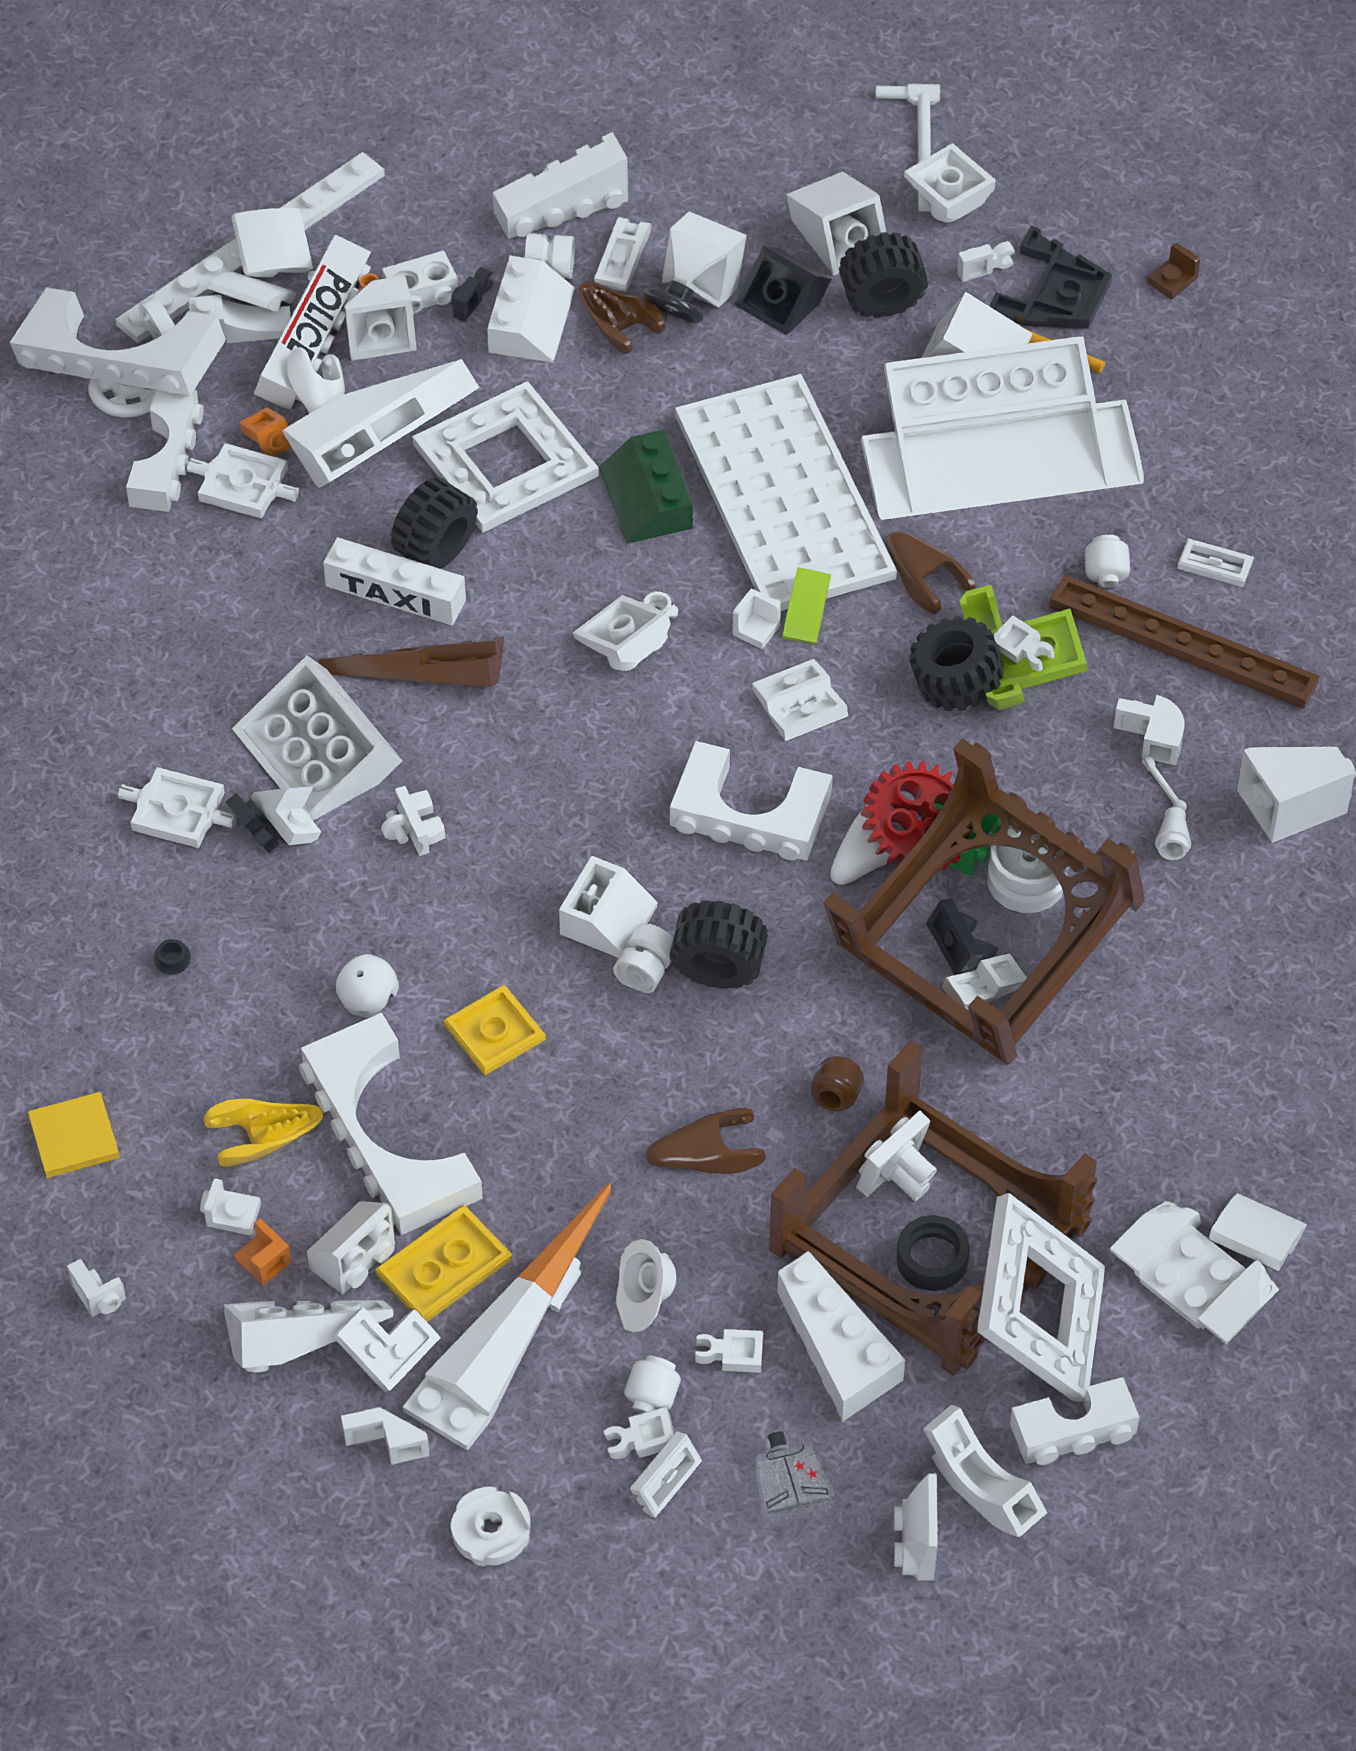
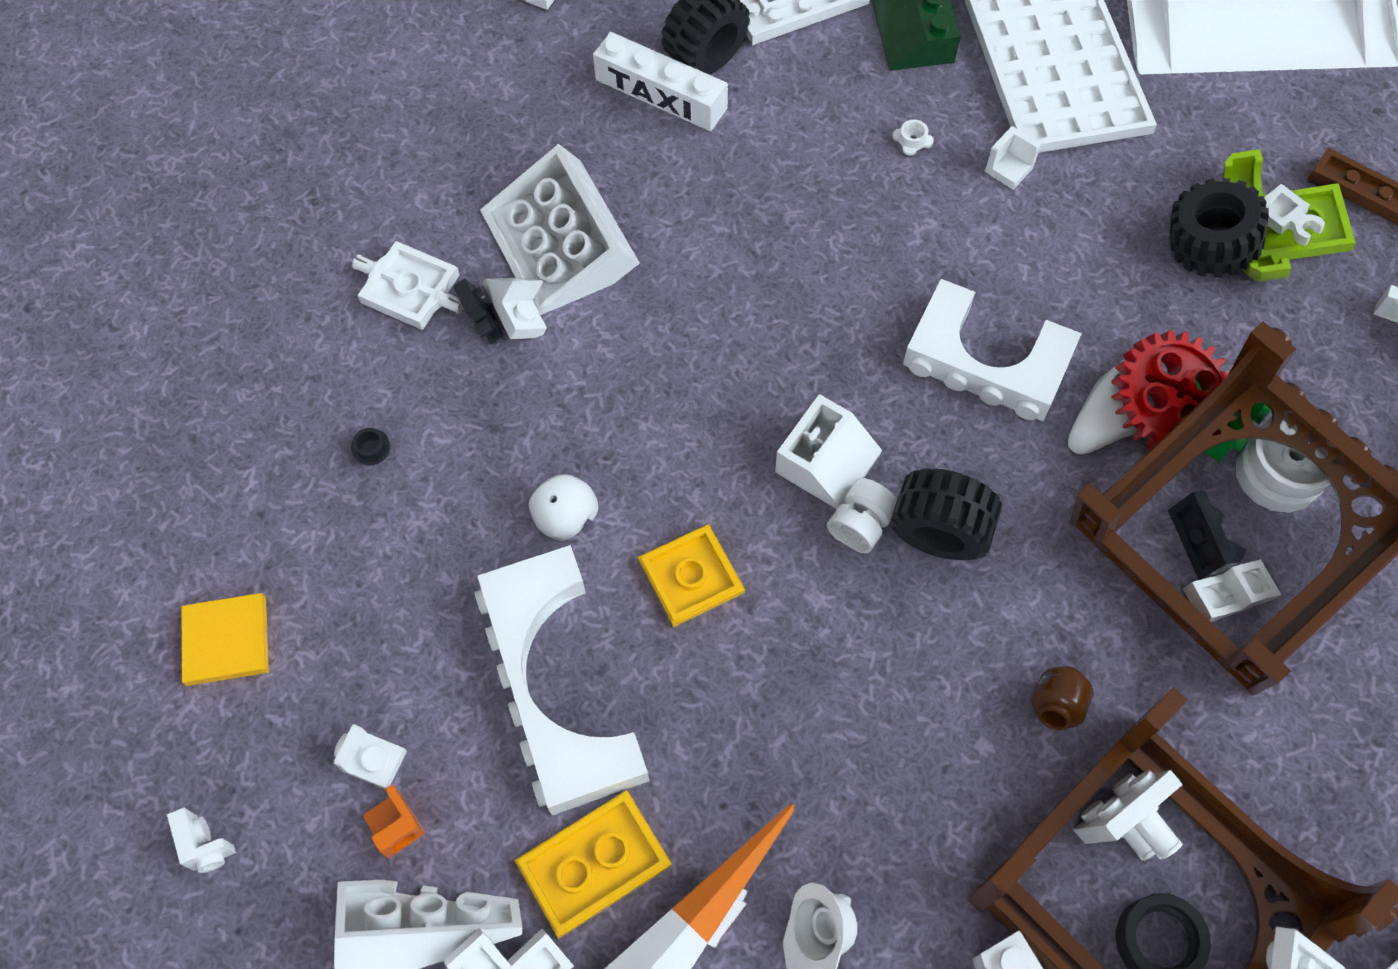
camera: 10 degrees right, 10 degrees up
(267, 1125) = (431, 656): yellow animal -> none
(353, 1246) = (491, 833): white slope -> none
(408, 820) = (640, 314): white hips -> none
(447, 663) = (703, 169): reddish brown wedge -> none
(625, 632) = (879, 157): white slope -> none
(701, 1147) = (900, 755): reddish brown animal -> none
(794, 688) = (1043, 233): white slope -> none
(806, 606) = (1063, 150): lime slope -> none
(919, 559) = (1179, 116): reddish brown animal -> none
(1107, 561) = (1372, 138): white head -> none

